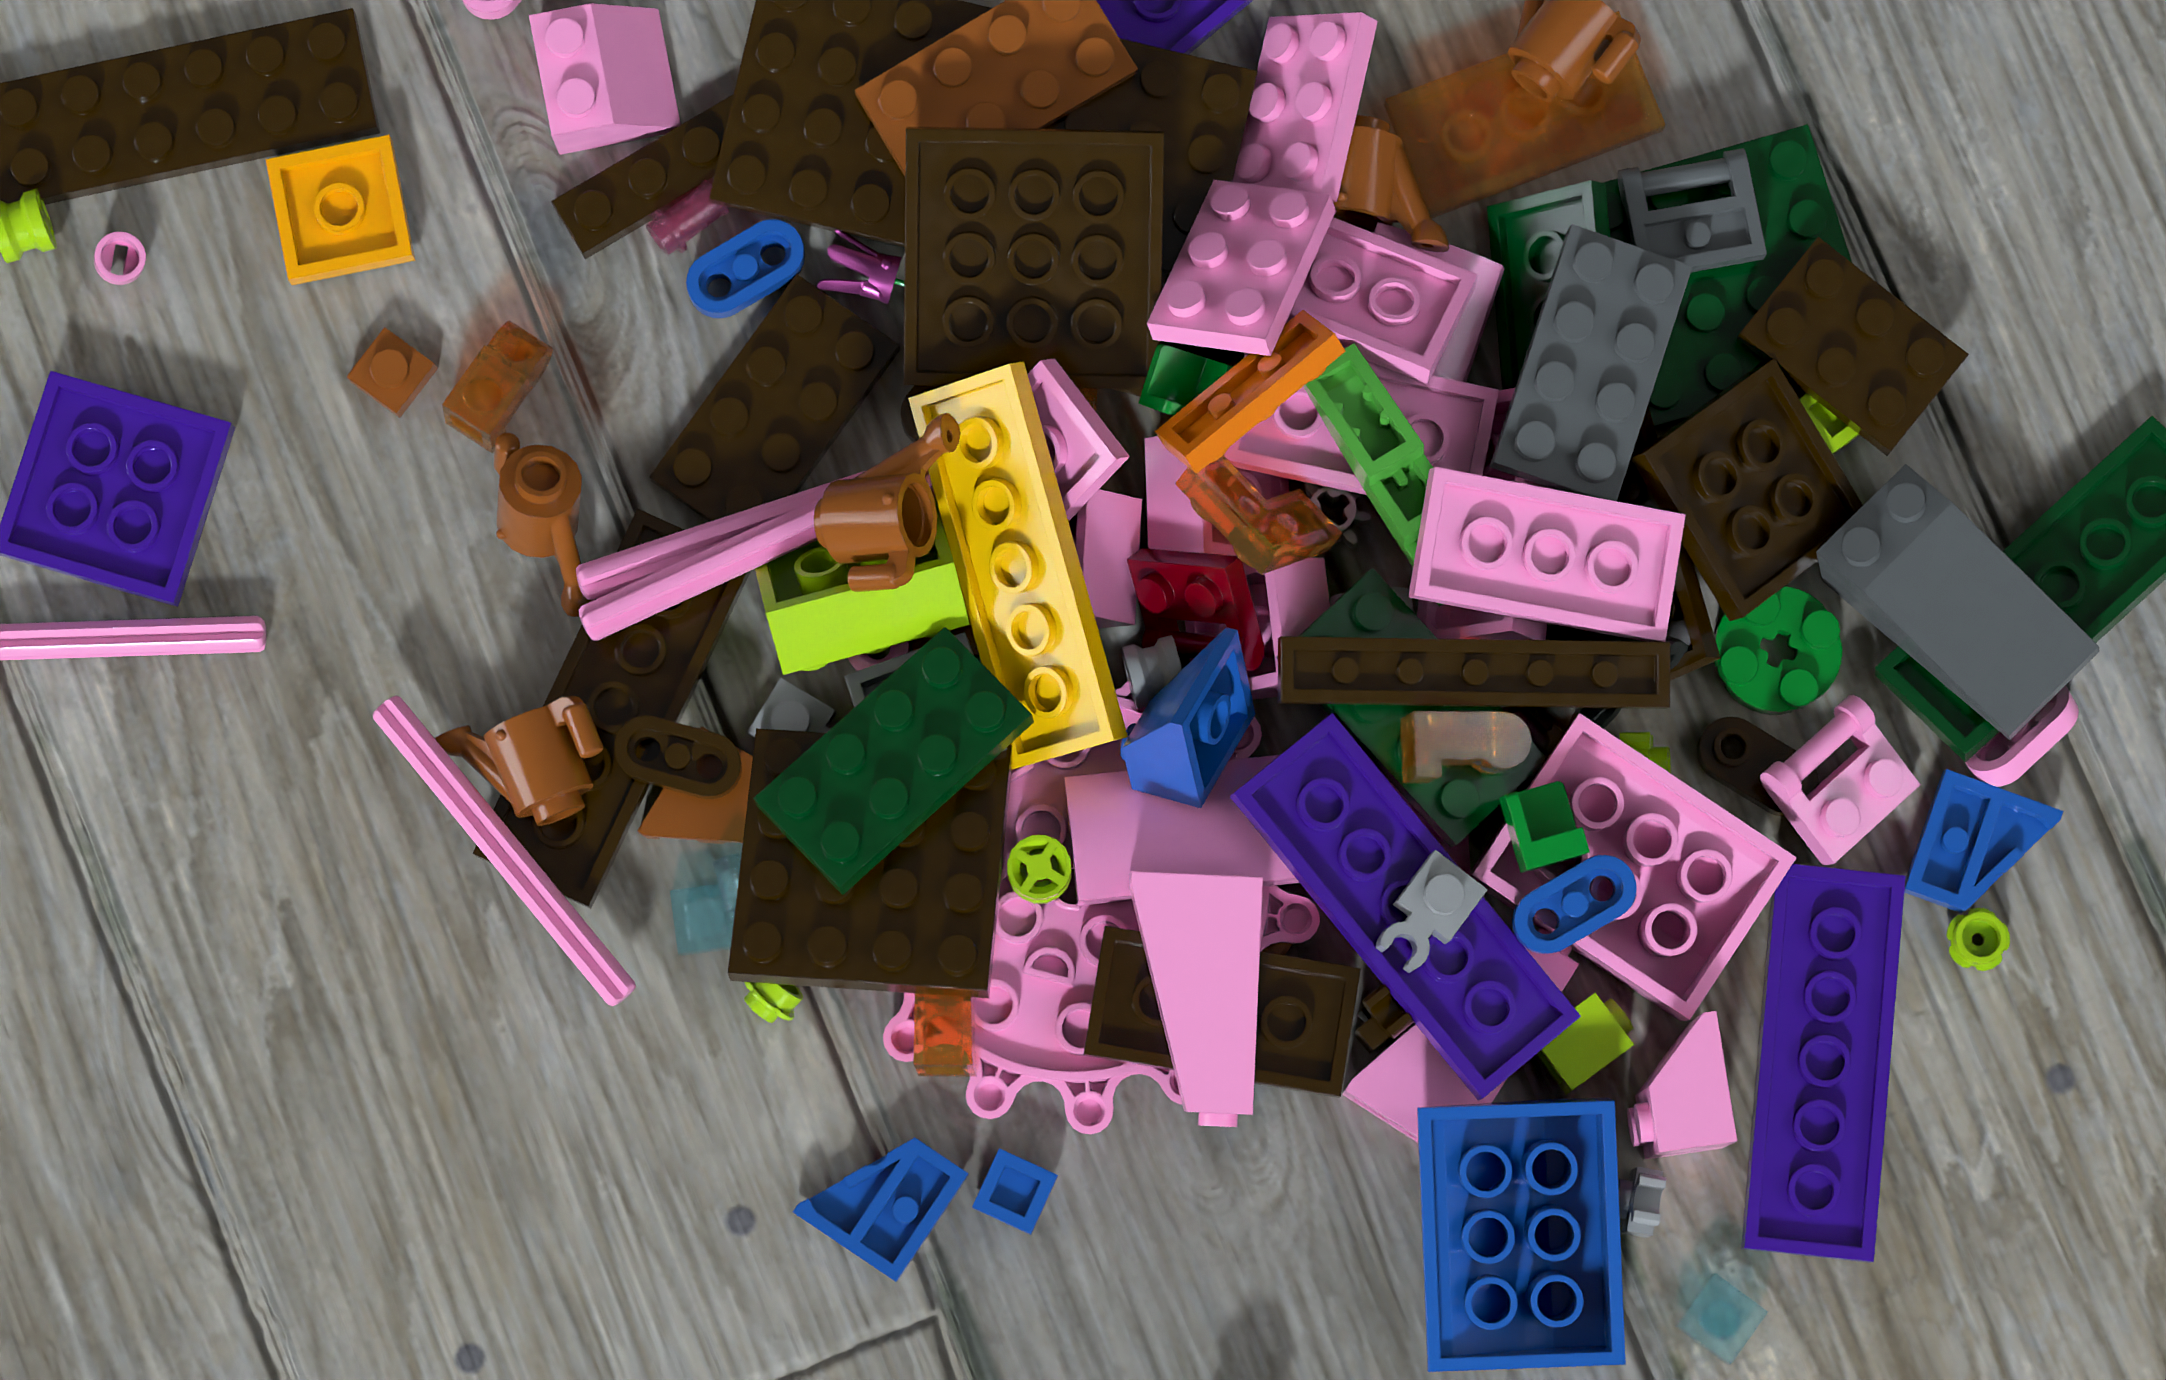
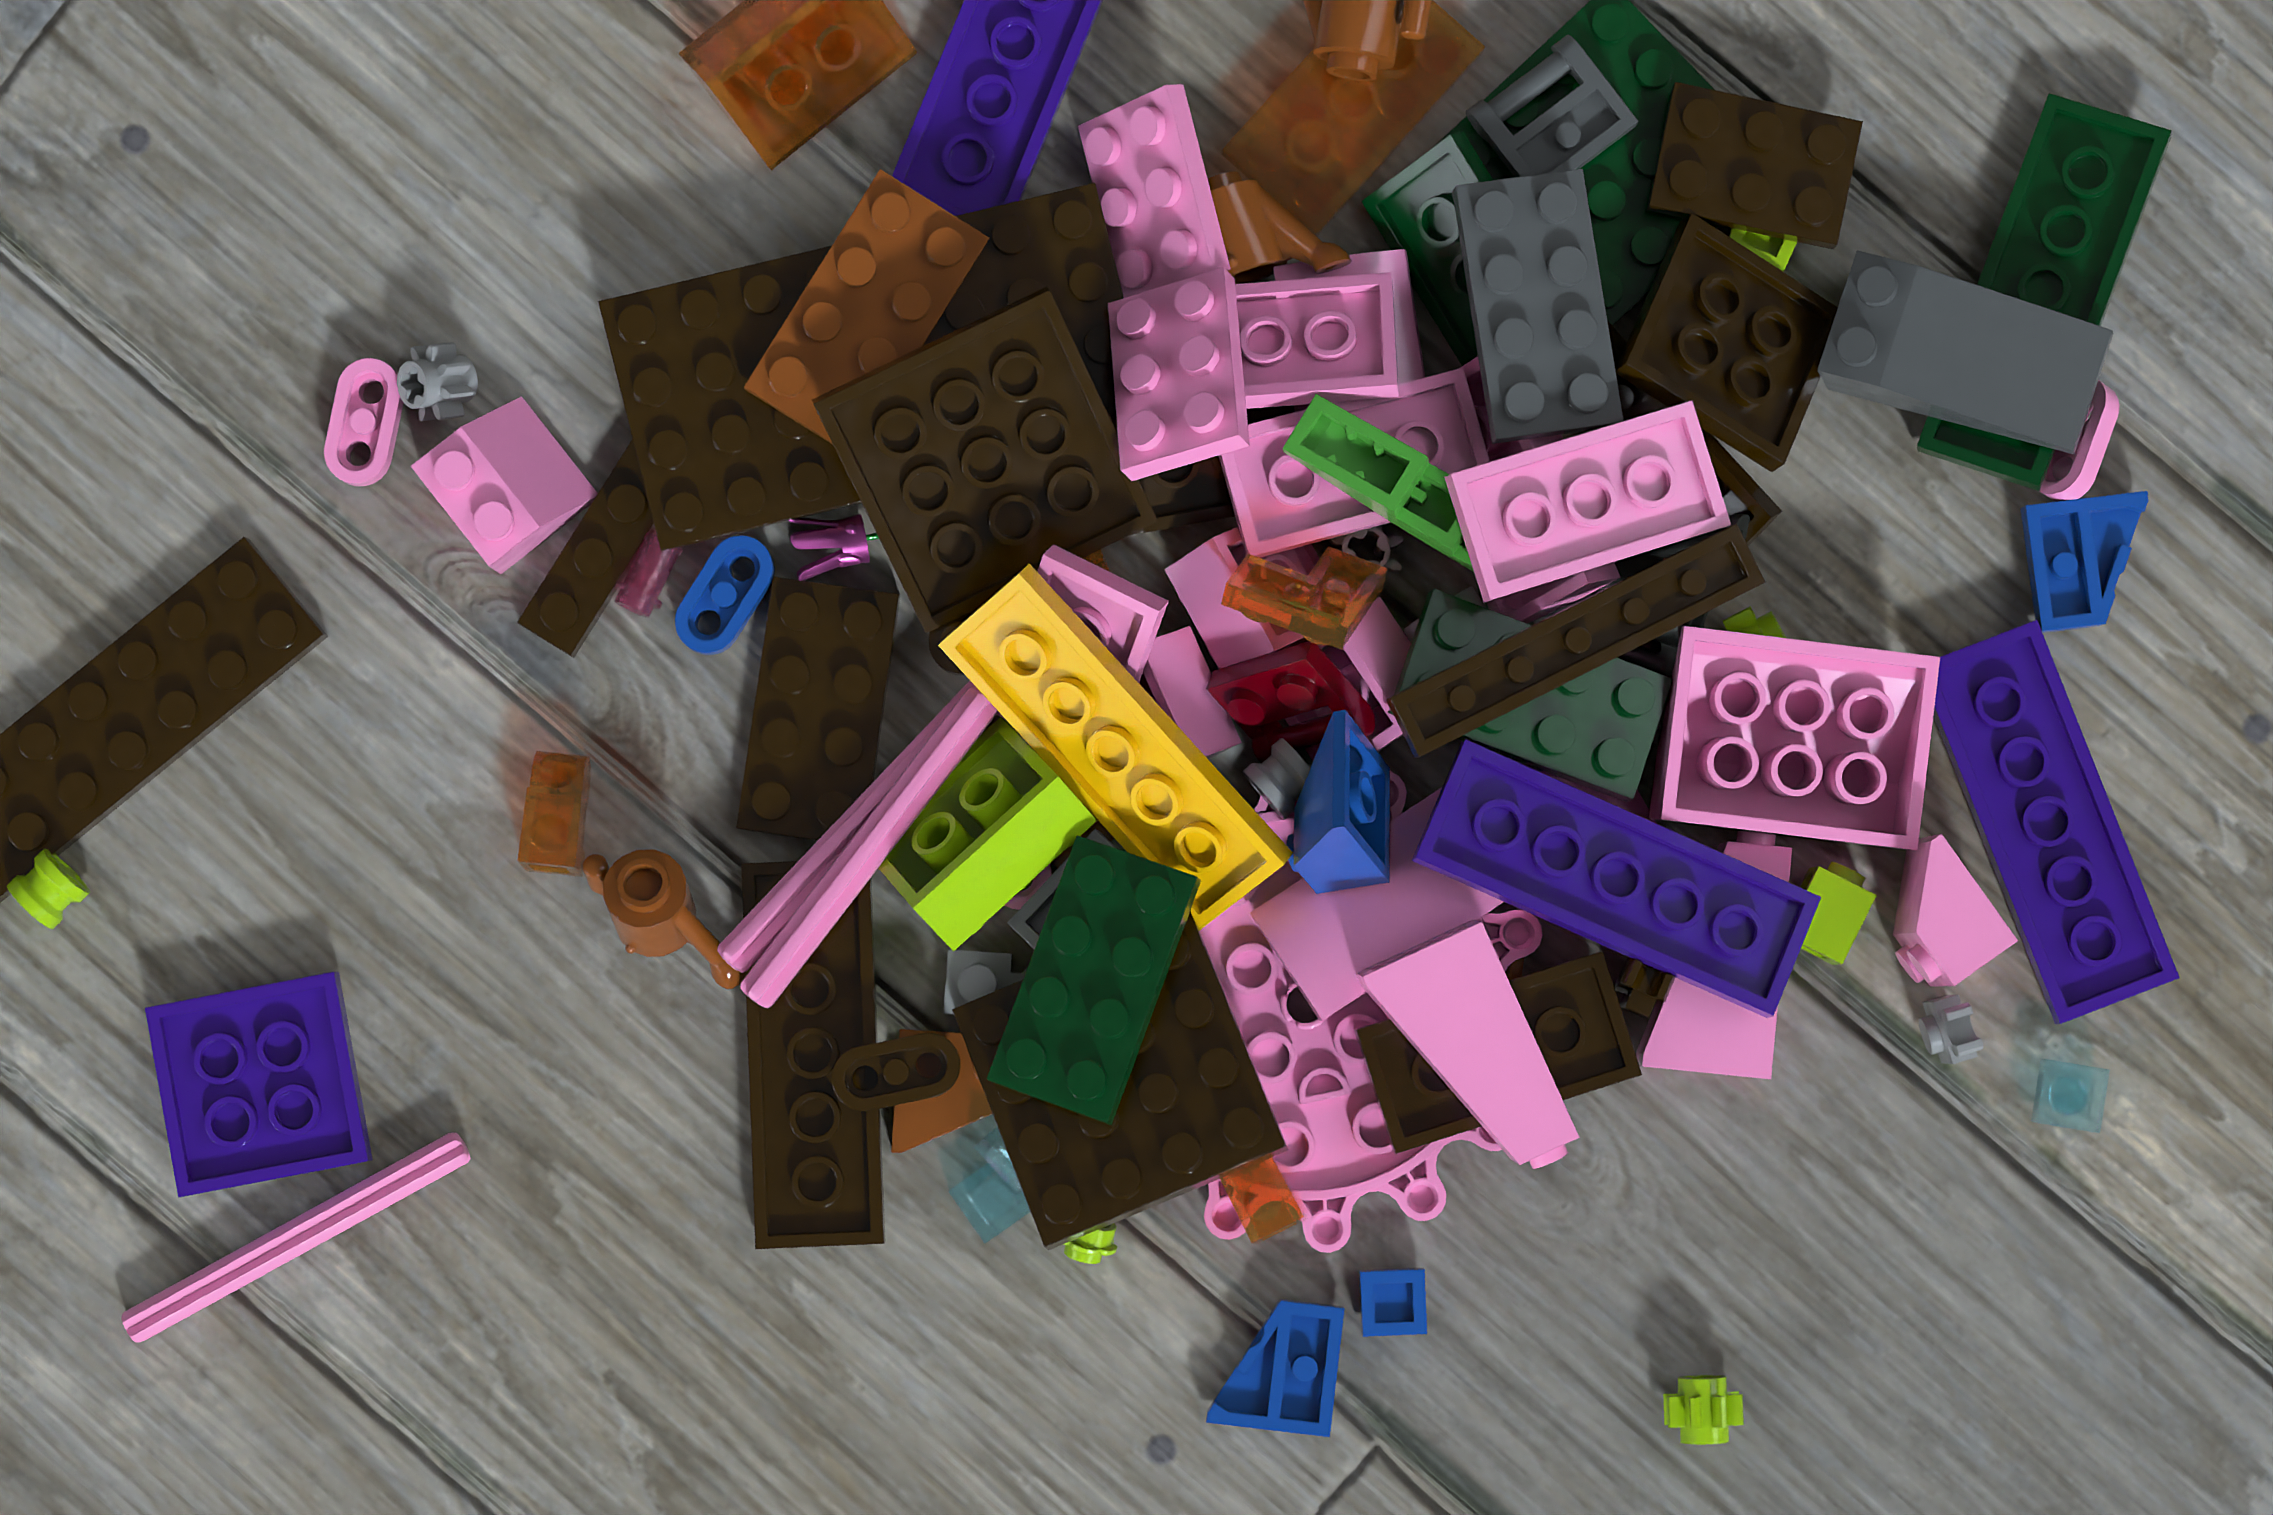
camera: 25 degrees left, 5 degrees up
(133, 262) = (167, 870): bright pink hinge -> none
(340, 210) = (330, 727): light orange plate -> none
(392, 372) = (454, 850): dark orange plate -> none
(504, 851) = (783, 1234): bright pink axle -> none
(534, 758) = (769, 1139): dark orange piece -> none
(886, 512) = (974, 762): dark orange piece -> none
(1036, 855) = (1279, 1010): lime wheel -> none
(1178, 378) = (1190, 505): green panel -> none
(1249, 393) = (1247, 488): orange plate -> none
(1435, 904) = (1646, 864): light grey plate -> none
(1480, 739) = (1611, 697): clear orange leg -> none
(1521, 1235) = (1864, 1115): blue slope -> none
(1542, 826) = (1705, 747): green panel -> none
(1573, 904) = (1767, 803): blue plate -> none
(1744, 773) = (1856, 586): dark brown plate -> none
(1795, 683) = (1850, 495): green plate -> none
(1853, 795) = (1954, 571): bright pink plate -> none
(1994, 934) = (2143, 640): lime plate -> none

